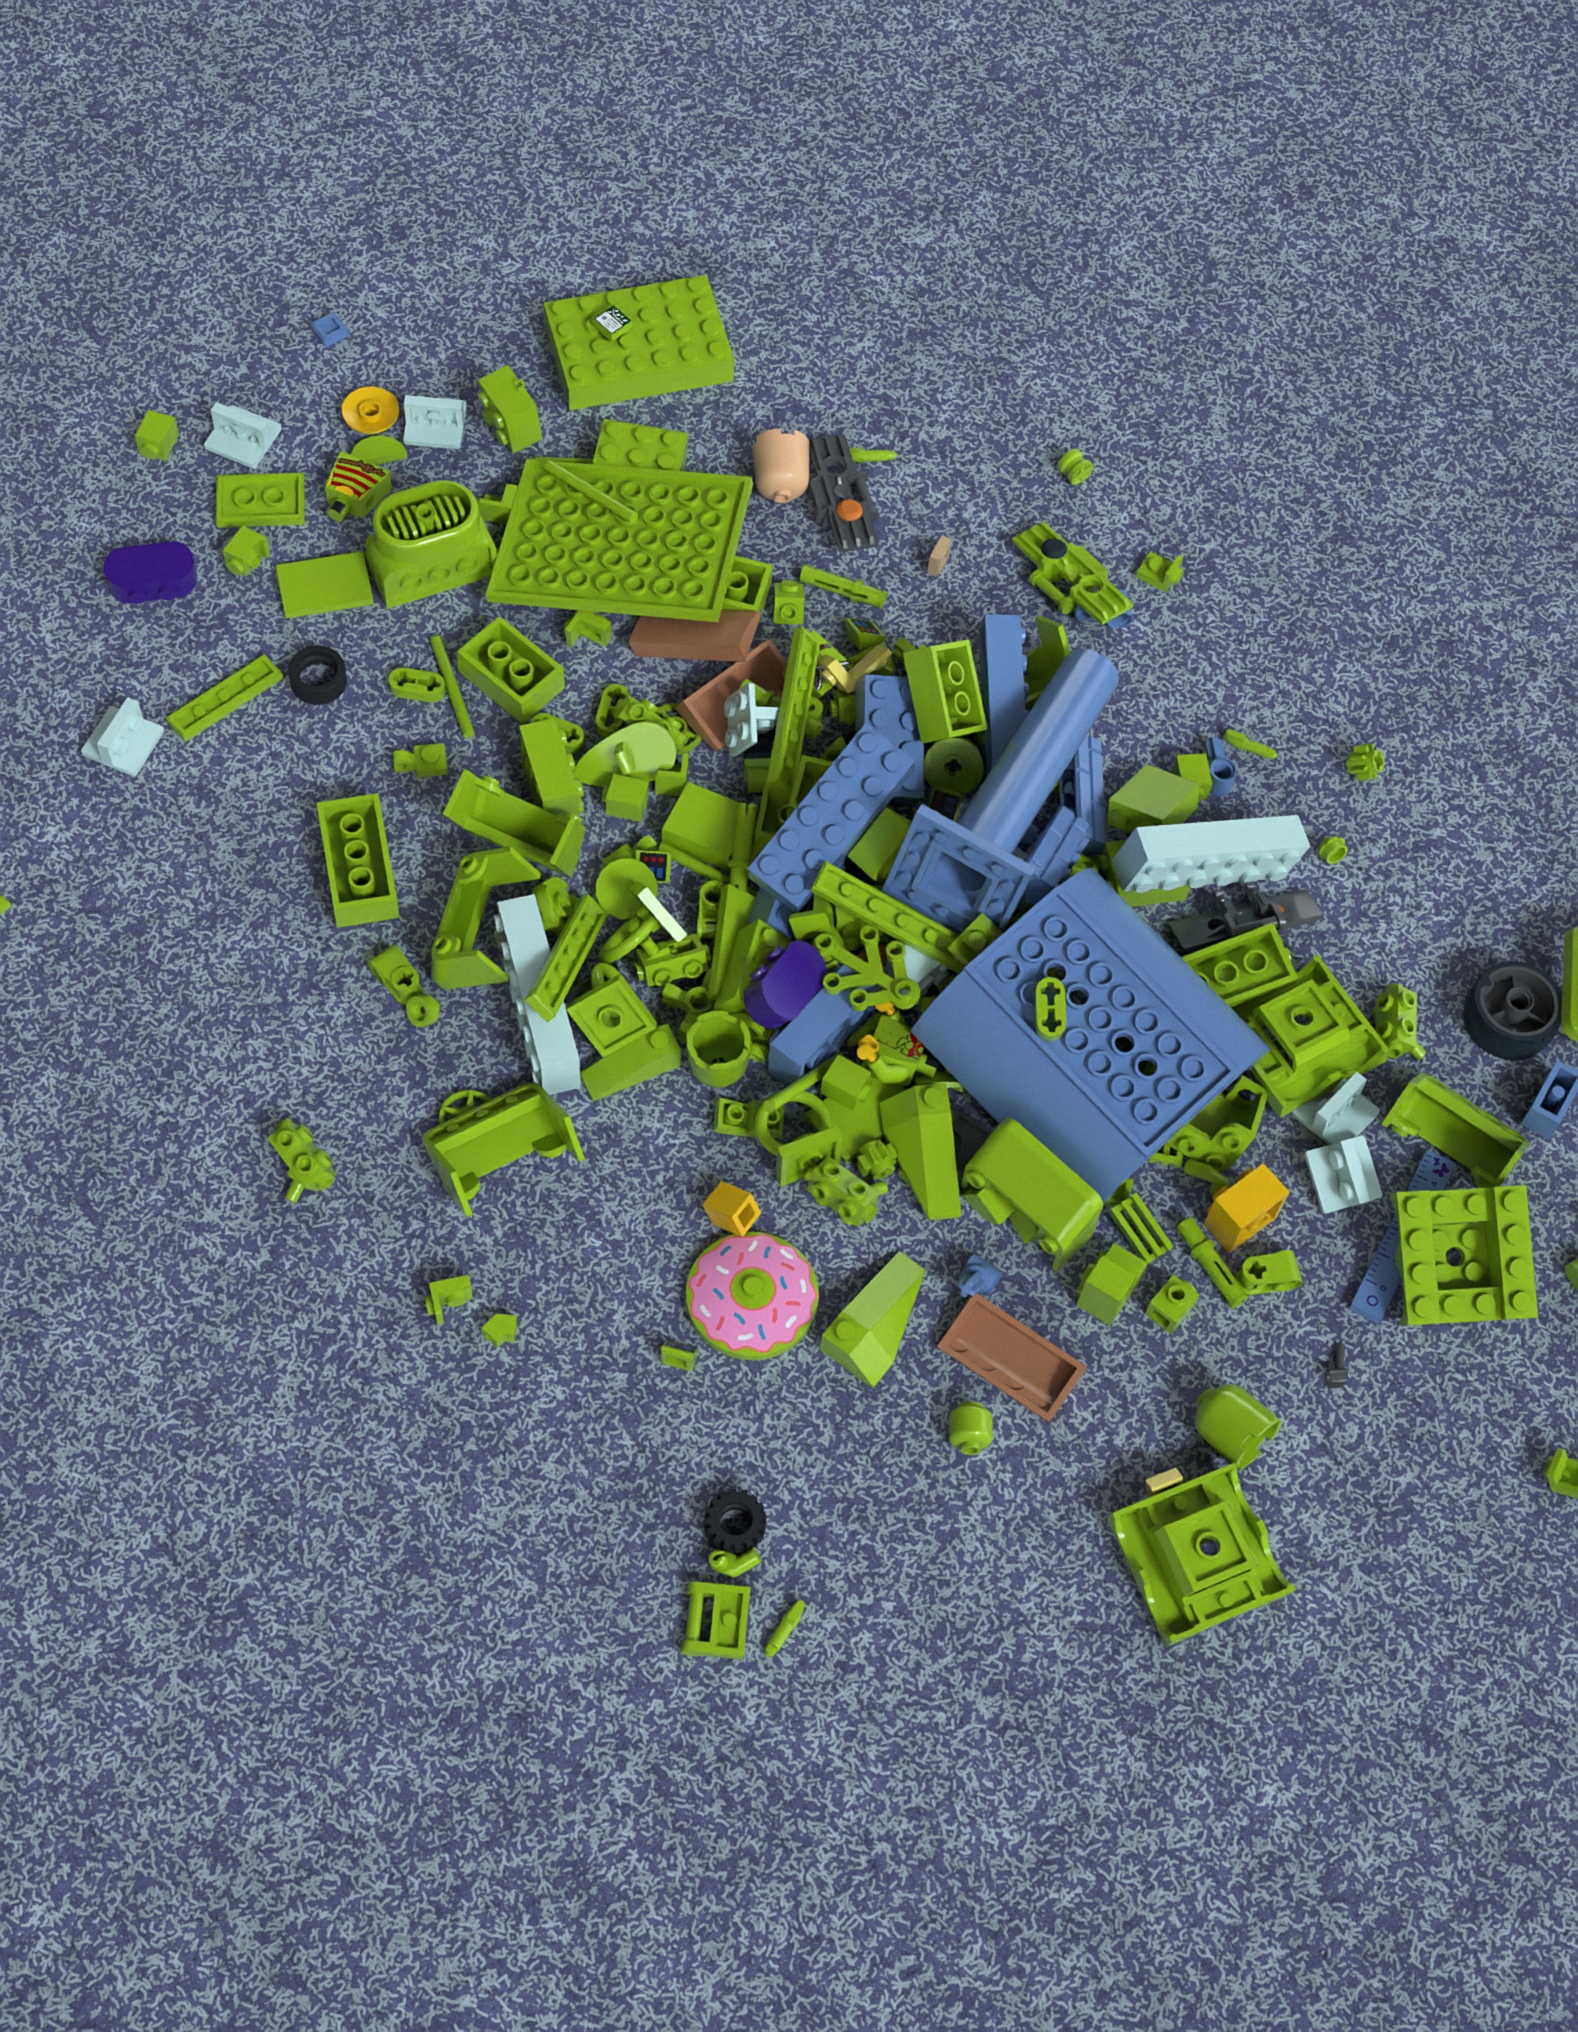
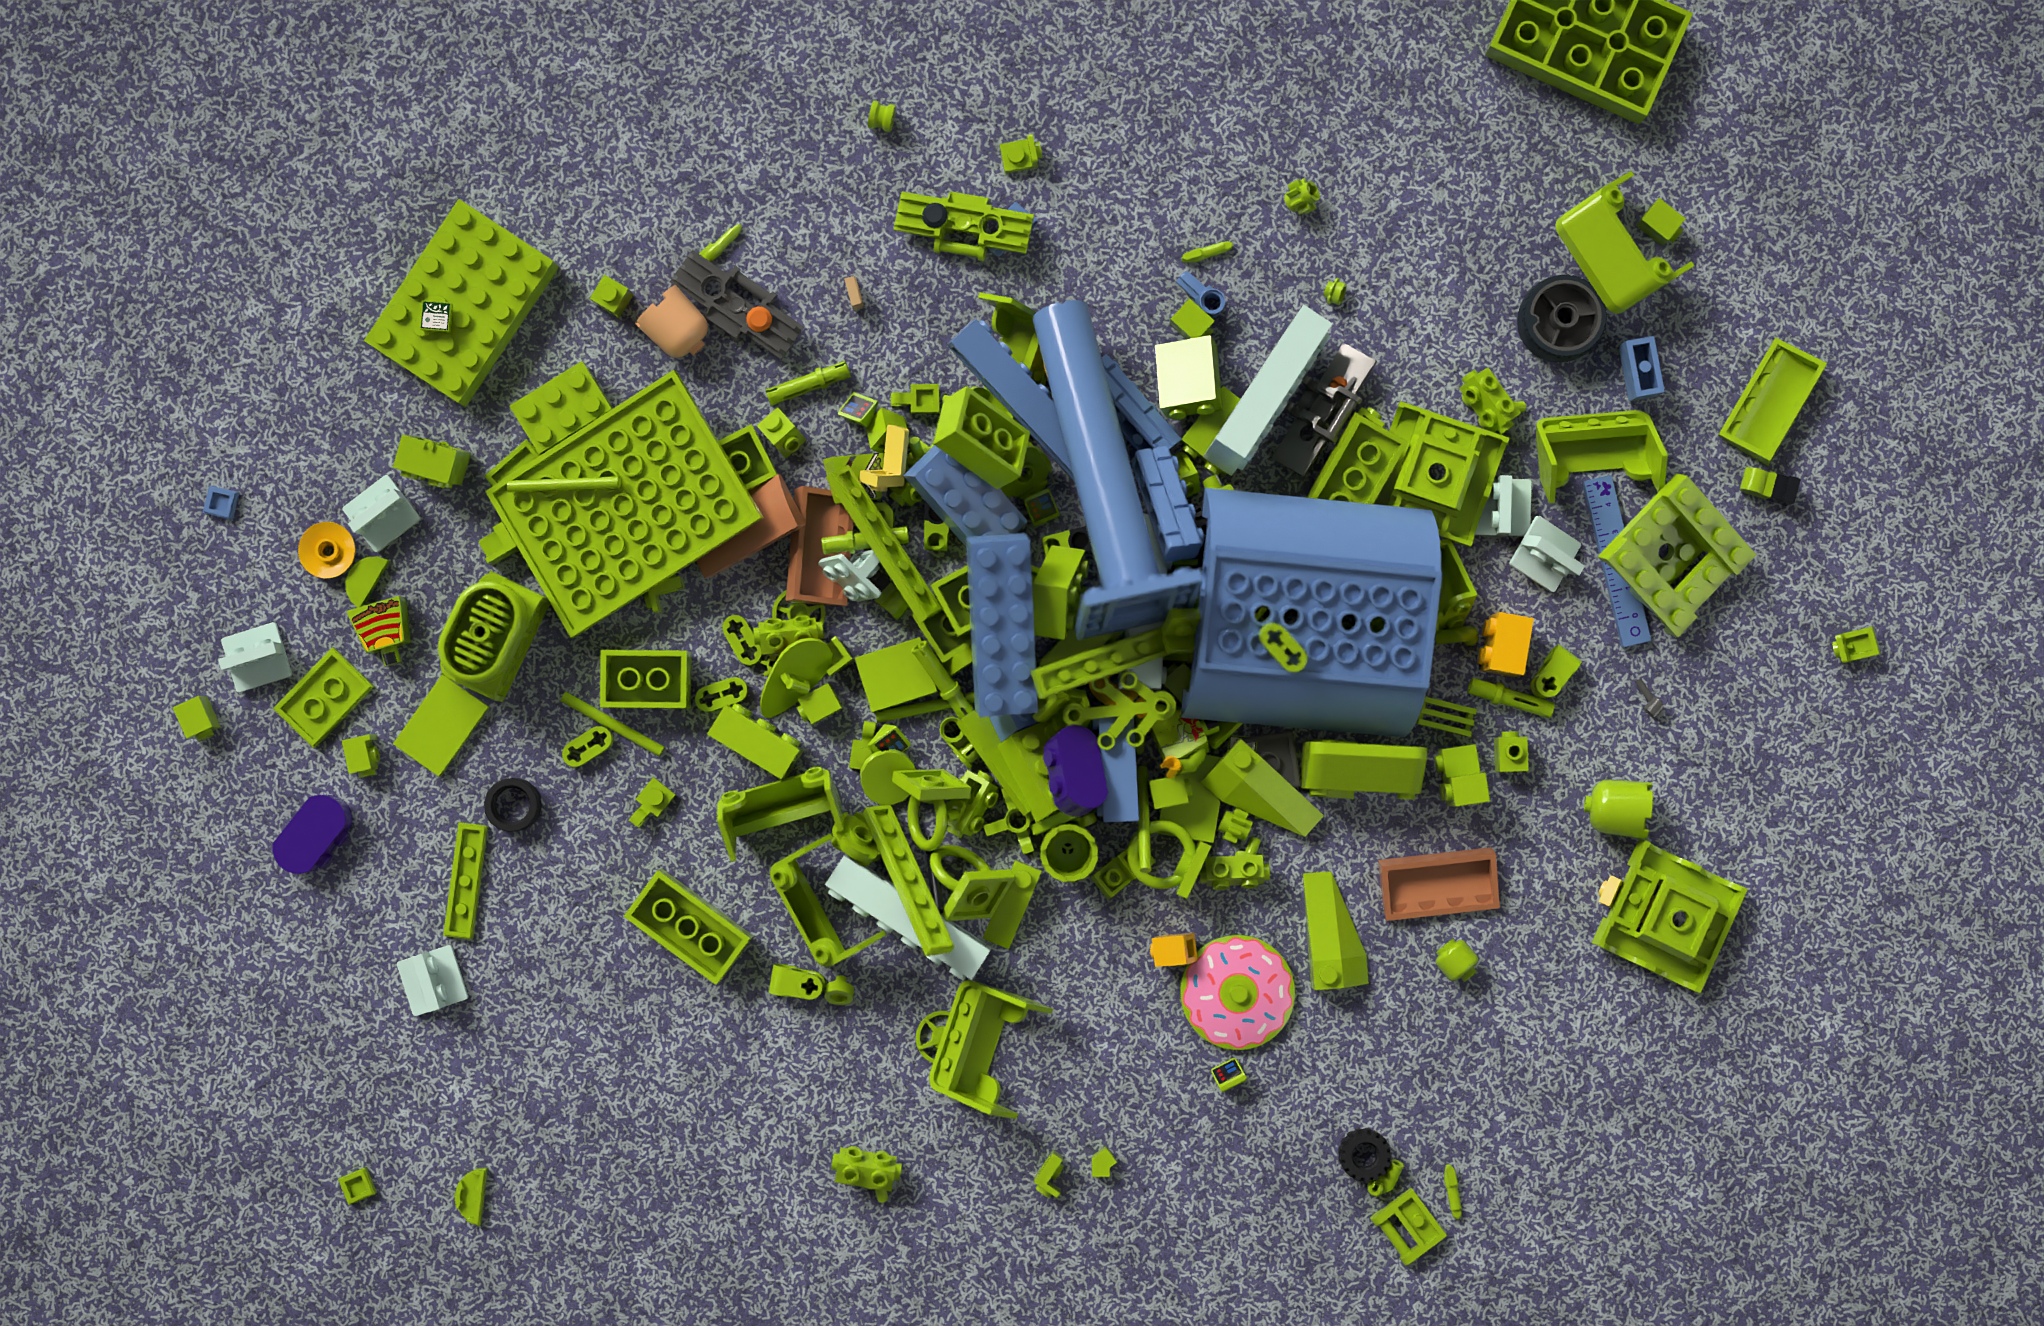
camera: 30 degrees left, 25 degrees up
(752, 418) = (611, 296): none -> lime brick
(978, 1277) = (1373, 850): medium blue axle -> none

